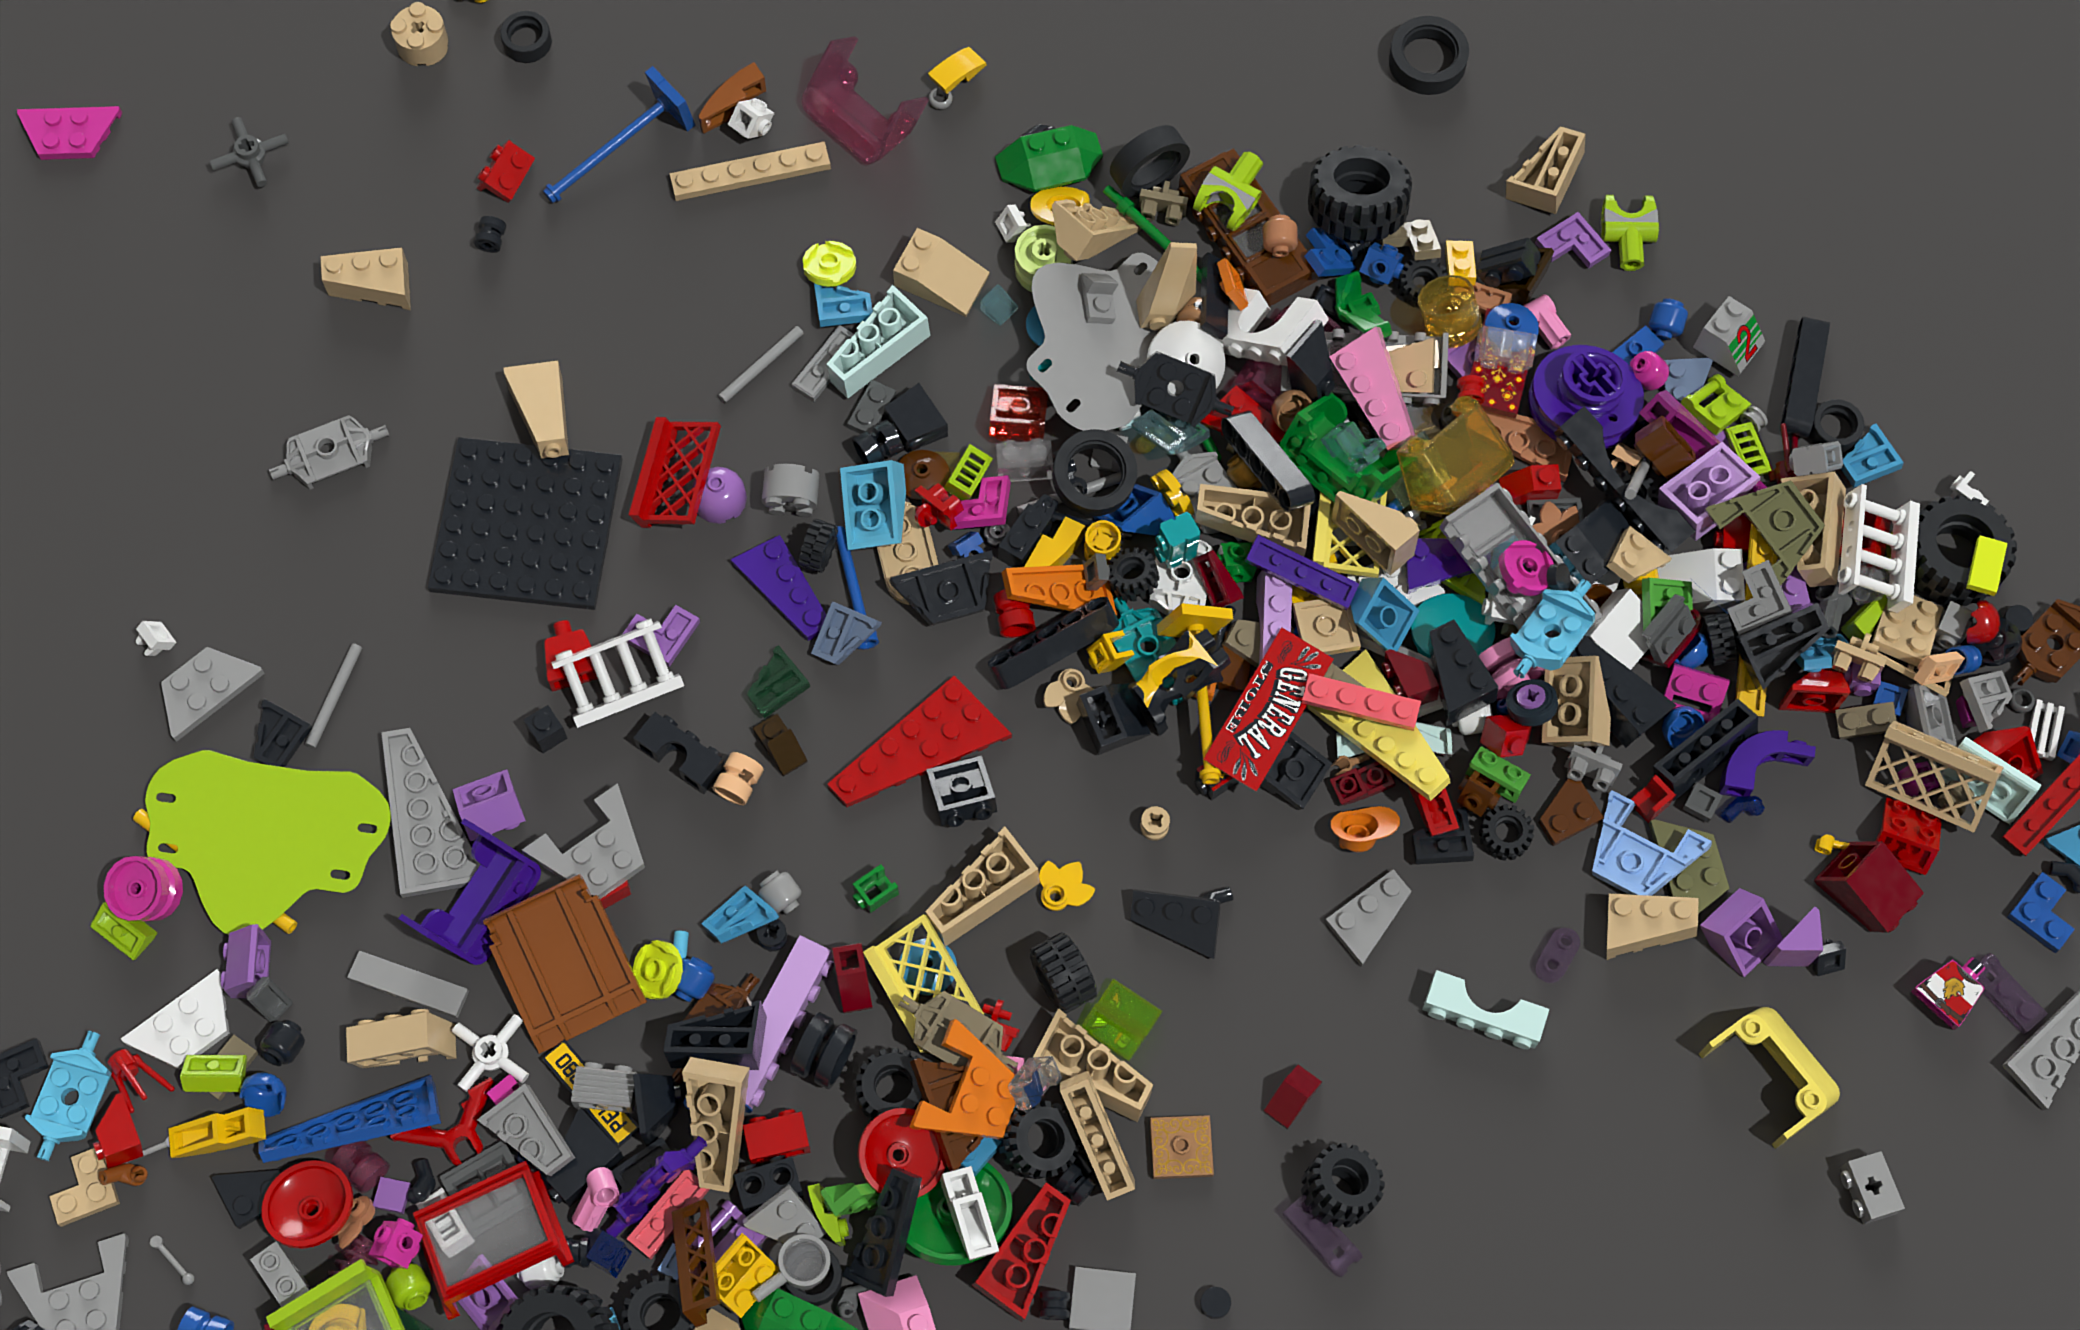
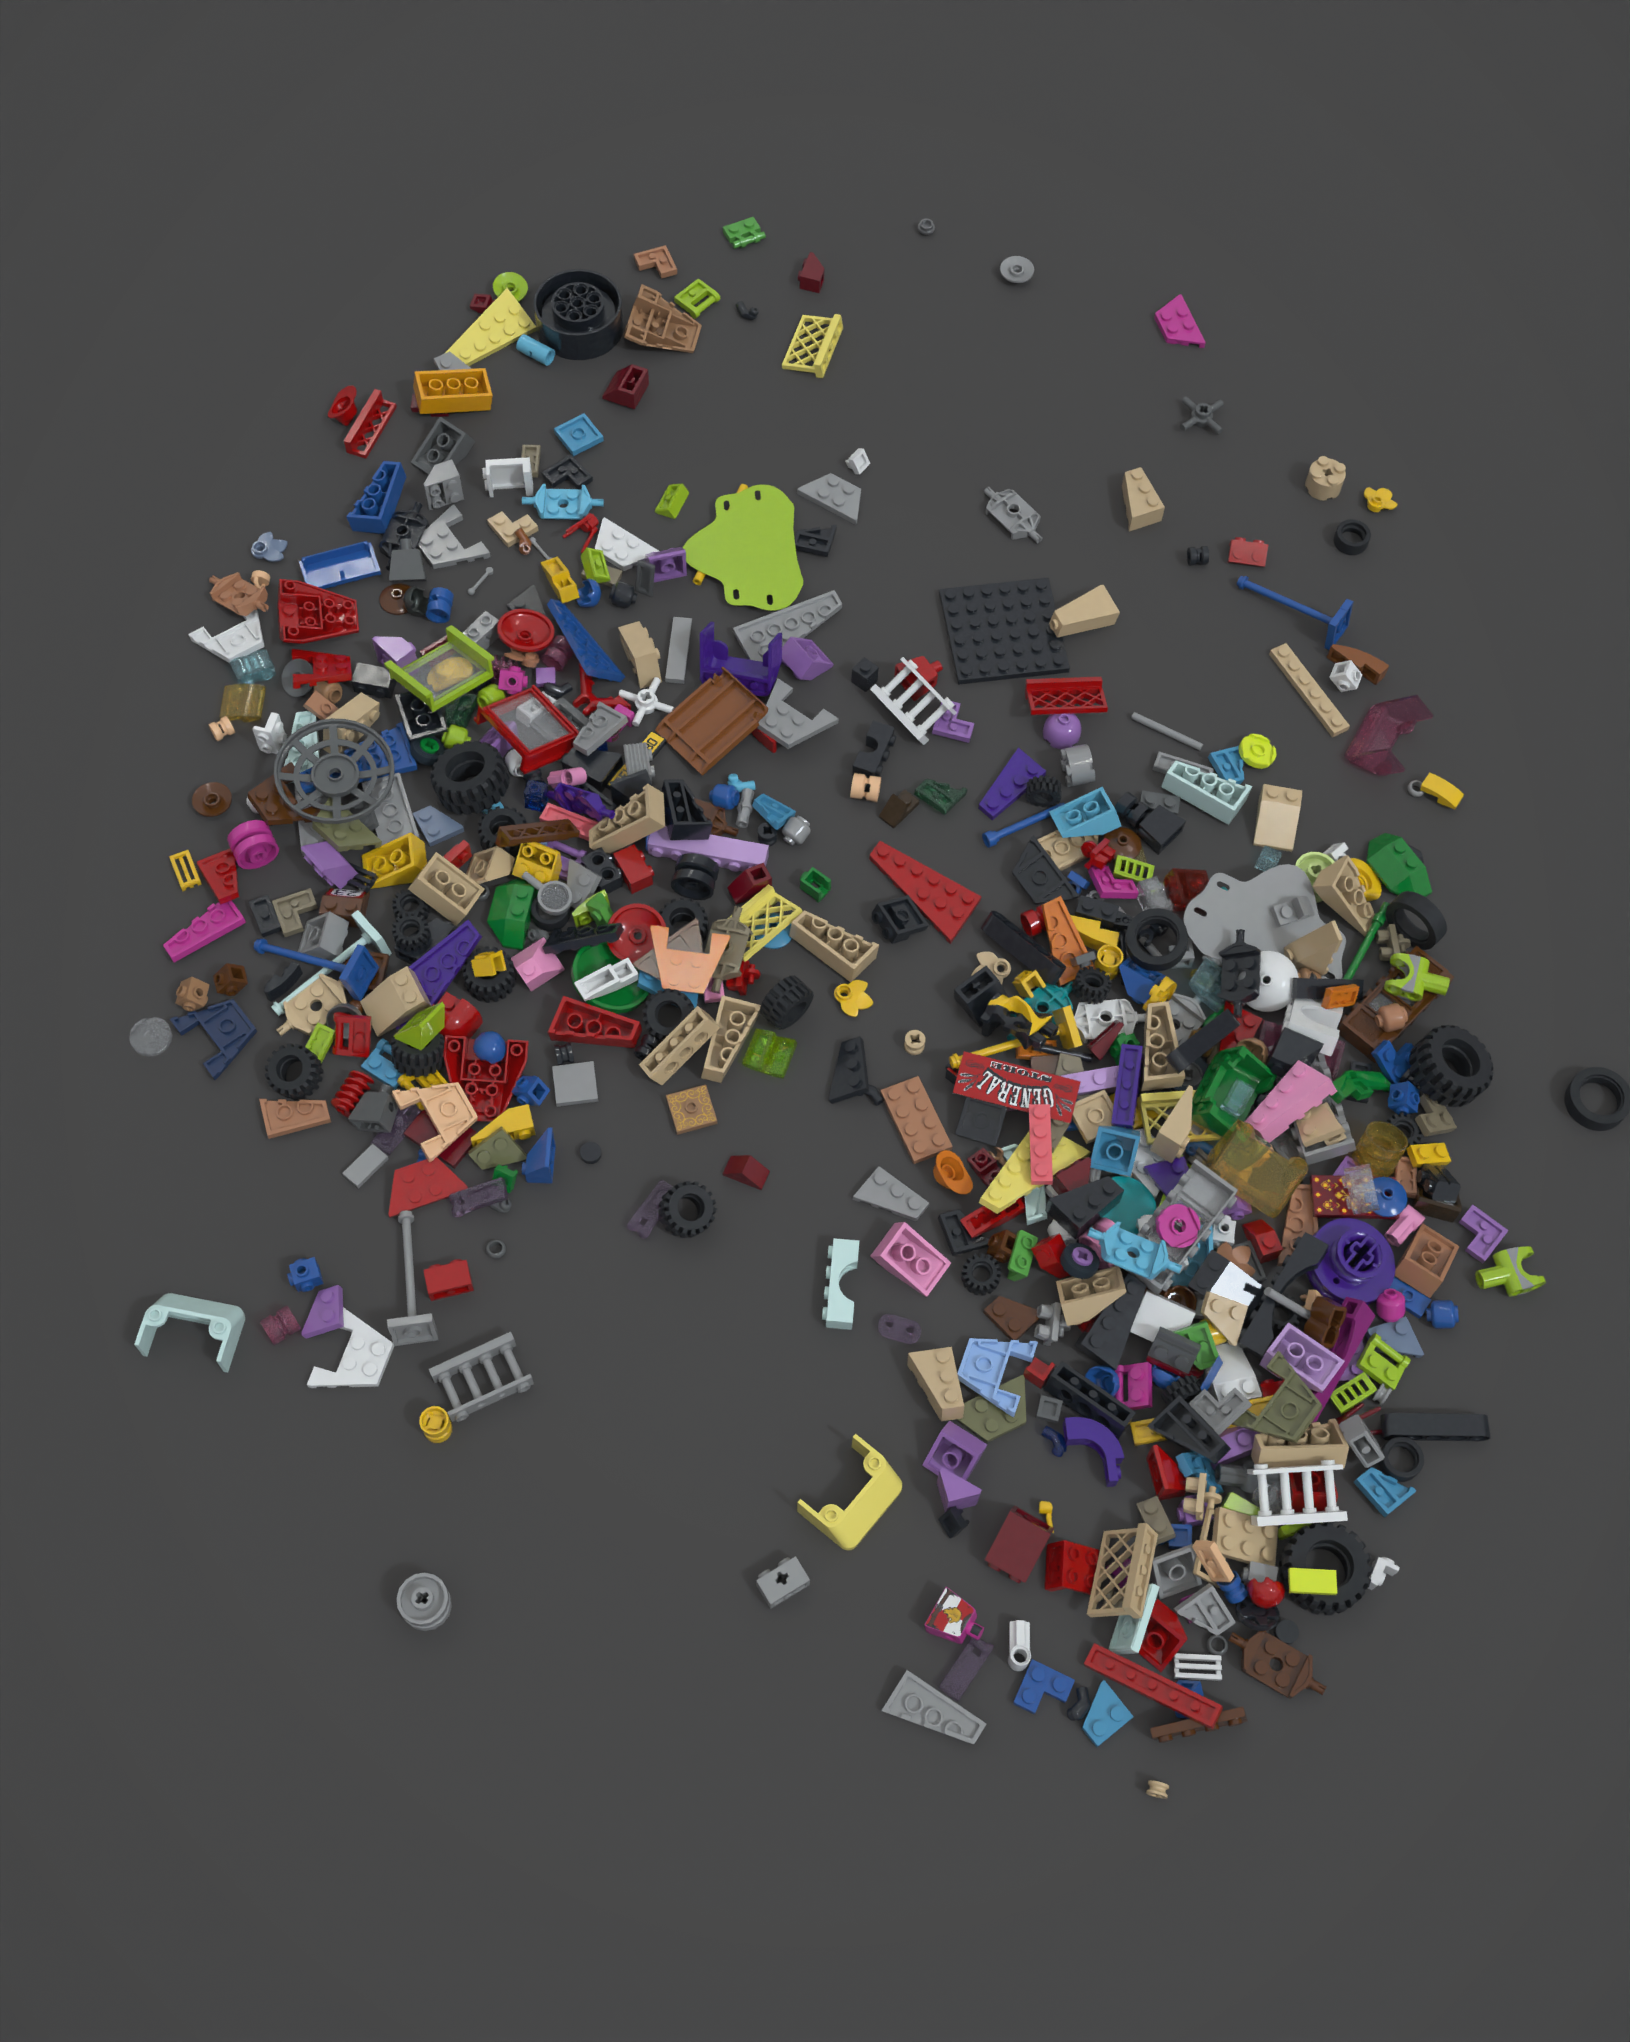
camera: 75 degrees right, 5 degrees down
(117, 1135) = (545, 529): red slope -> none
(143, 888) = (695, 497): dark pink wheel -> none
(333, 696) = (852, 562): light grey bar -> none
(658, 969) = (724, 774): neon yellow tile -> none
(717, 955) = (745, 808): none -> light grey pin
(843, 633) = (987, 821): sand blue wing -> none
(1033, 1081) = (703, 996): clear leg -> none
(1177, 540) = (1121, 999): teal brick -> none
(1267, 853) = (916, 1119): none -> nougat plate
(1467, 914) = (910, 1258): none -> bright pink slope
(1471, 386) = (1318, 1173): red wheel -> none
(1549, 172) = (1534, 1203): tan wedge -> none
(1558, 577) = (1177, 1248): black tile -> none
(1598, 312) = (1426, 1260): none -> nougat slope
(1731, 336) = (1446, 1363): light grey slope -> none
(1990, 923) = (1019, 1643): none -> white piece

